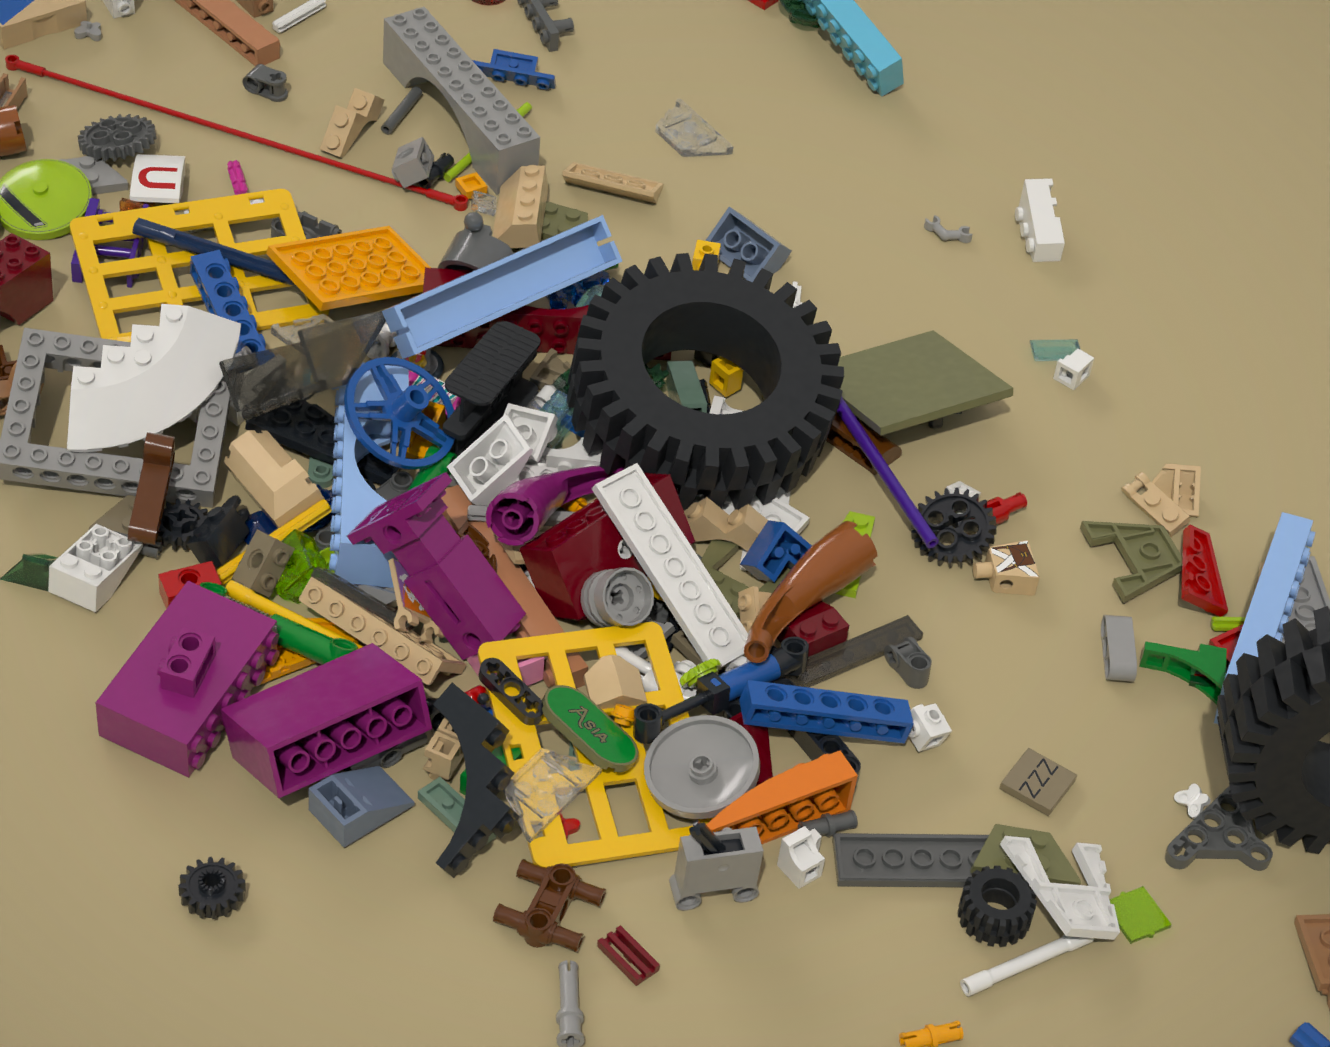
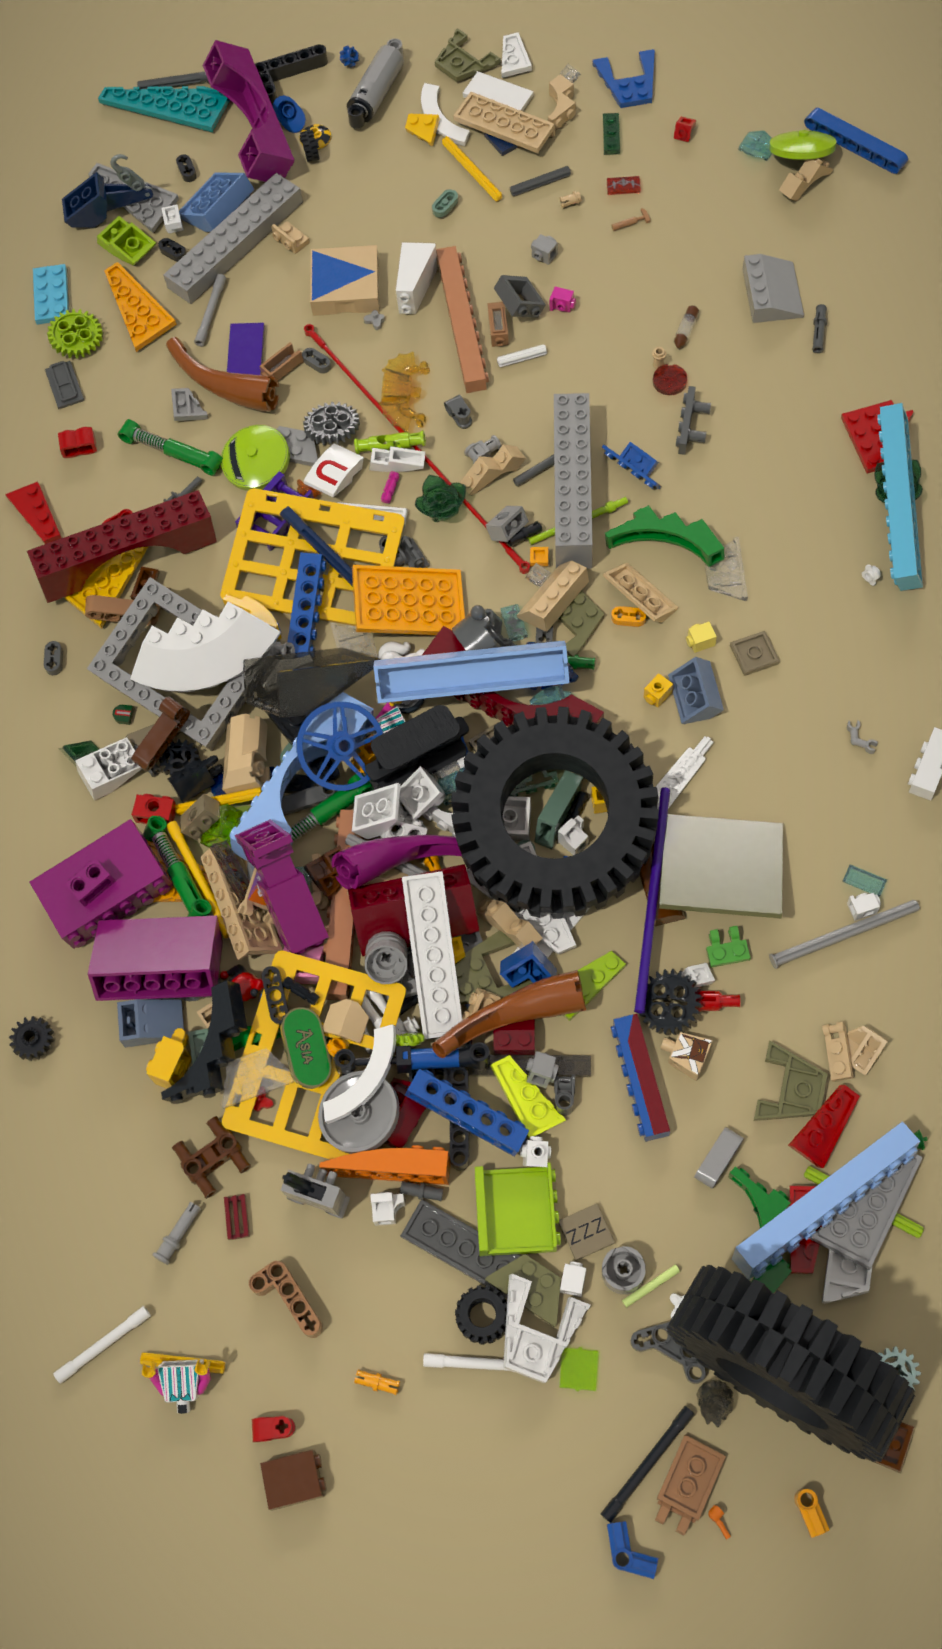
camera: 45 degrees right, 20 degrees up
(46, 88) = (317, 359): none -> dark grey beam
(65, 510) = (123, 714): none -> dark green tile
(179, 85) = (398, 389): none -> clear yellow torso
(203, 134) = (402, 440): none -> lime piece
(225, 148) = (396, 460): none -> white slope
(314, 170) = (439, 499): none -> clear green brick
(322, 110) = (482, 449): none -> light grey connector
(423, 825) = (170, 1060): none -> yellow hinge
(540, 673) = (300, 990): none -> black axle
(603, 112) = (671, 529): none -> green arch
(617, 207) = (628, 616): none -> light orange beam
(694, 725) = (369, 1081): none -> white tile
(713, 197) = (701, 637): none -> light yellow brick
(778, 196) = (754, 653): none -> dark tan tile
(802, 1012) = (292, 1300): none -> medium nougat beam
(849, 86) = (871, 574): none -> white plate
(866, 678) = (525, 1098): none -> neon yellow wing
(872, 641) = (541, 1069): none -> light grey brick
(951, 791) = (516, 1211): none -> lime panel
(974, 463) = (727, 953): none -> bright green plate
(979, 611) = (641, 1078): none -> brick
(1027, 450) = (843, 933): none -> light grey axle
(1065, 826) = (573, 1279): none -> white brick
(1110, 791) = (635, 1266): none -> light grey brick
(1146, 799) = (635, 1296): none -> yellowish green bar
(1282, 1015) = (617, 1502): none -> black piece
(1300, 866) = (715, 1401): none -> clear smoke hair

